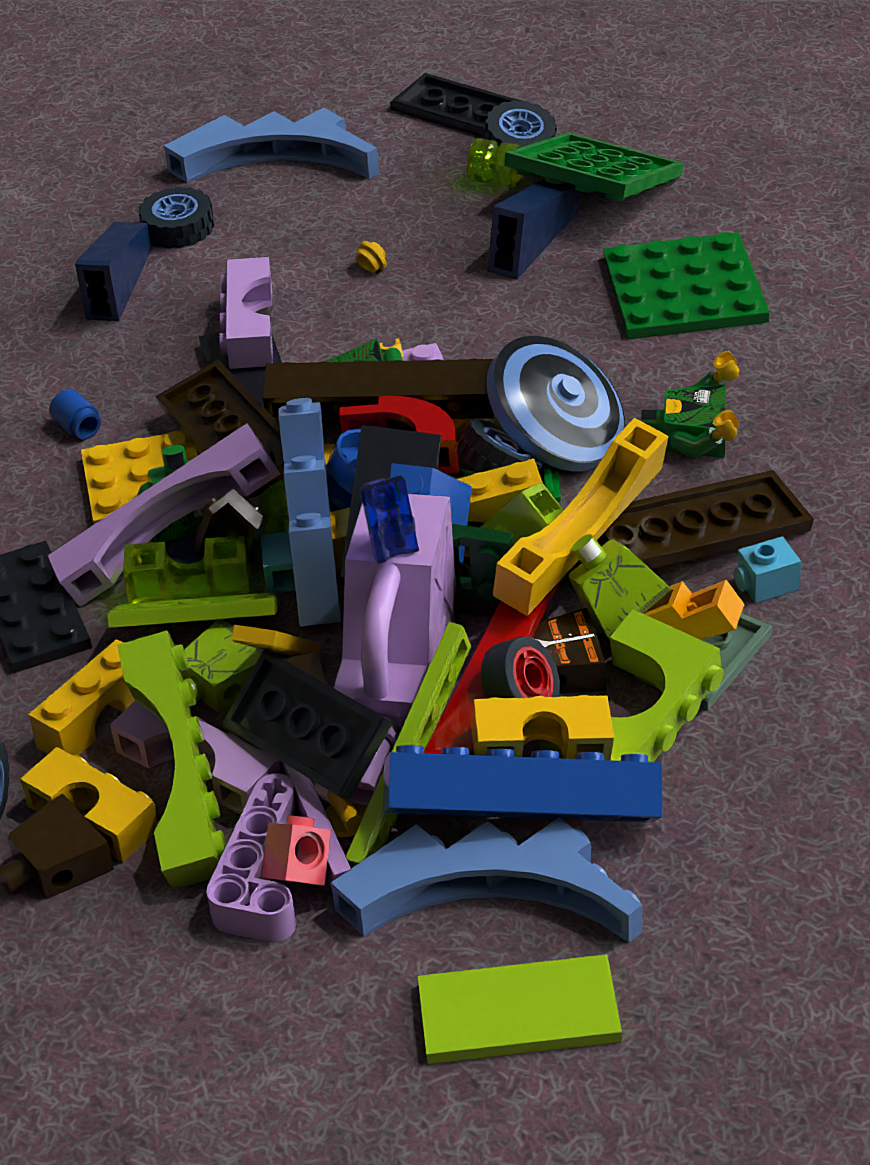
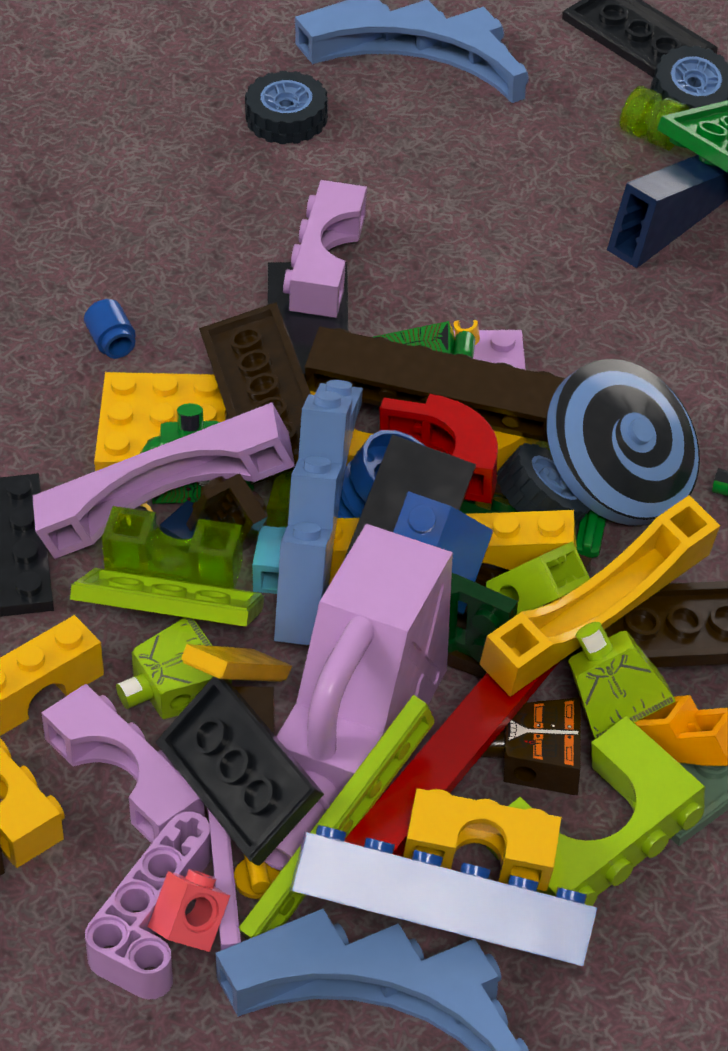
camera: 10 degrees right, 5 degrees up
(111, 269) = (197, 159): dark blue slope -> none
(186, 832) = (86, 857): lime arch -> none
(371, 256) = (482, 205): yellow plate -> none
(389, 518) = (373, 569): clear blue hips -> none
(519, 670) = (480, 764): wheel -> none

